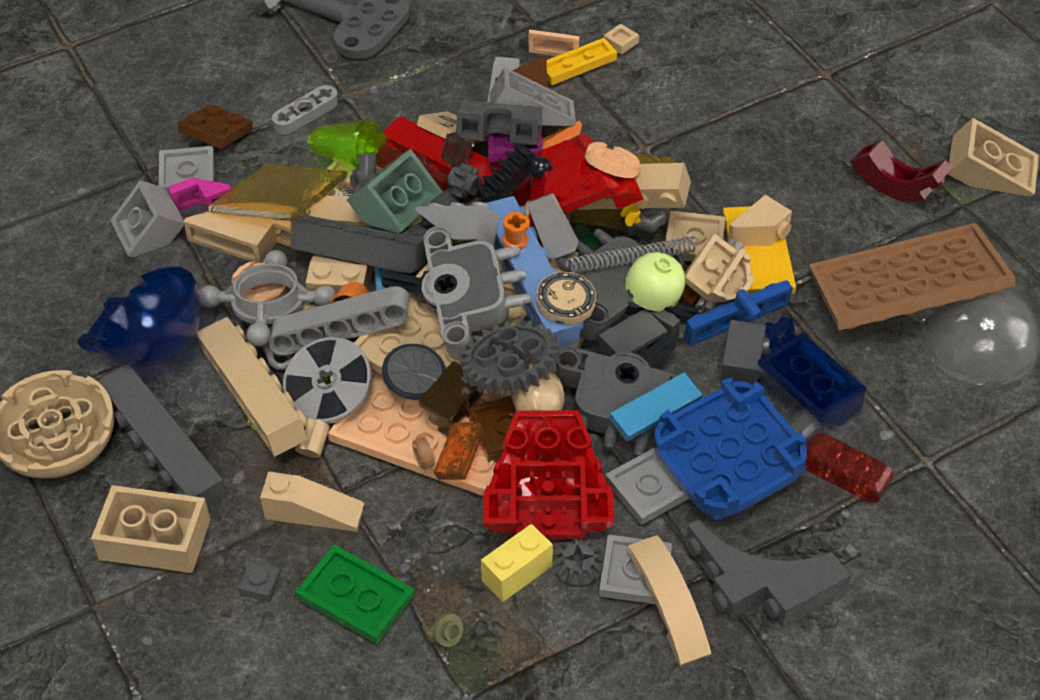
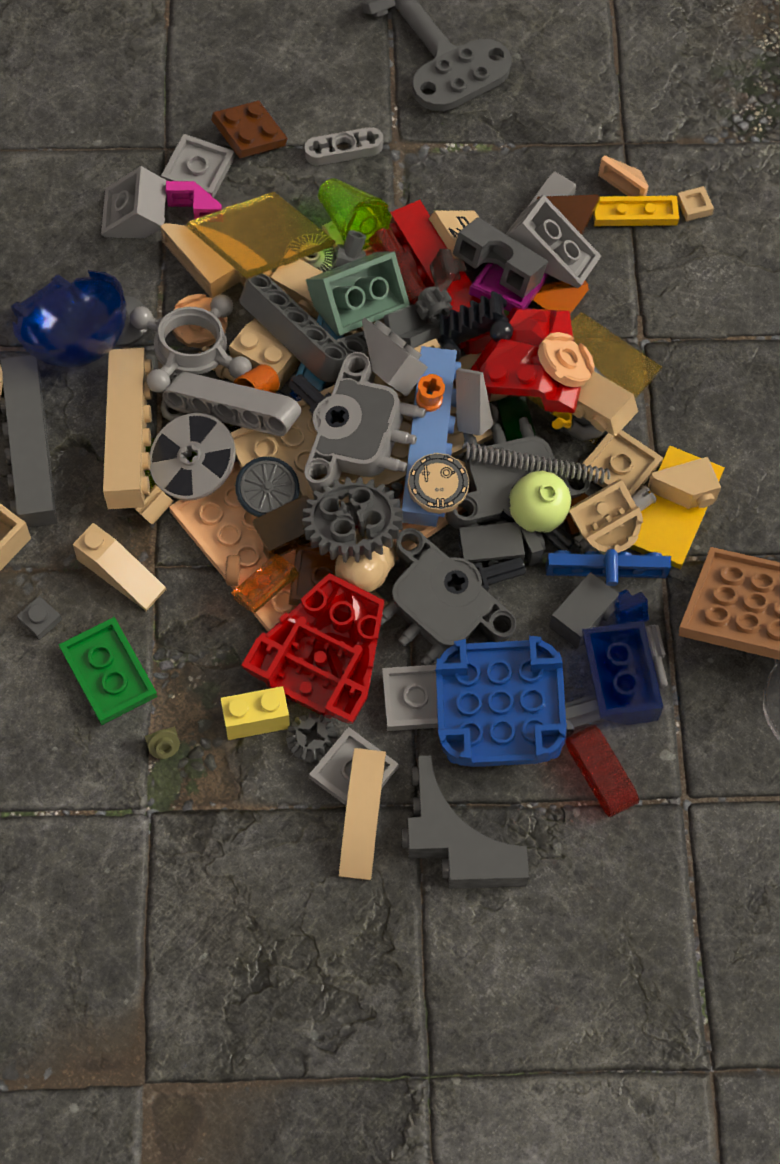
camera: 25 degrees right, 15 degrees up
(646, 410) = (474, 626): dark azure tile -> none

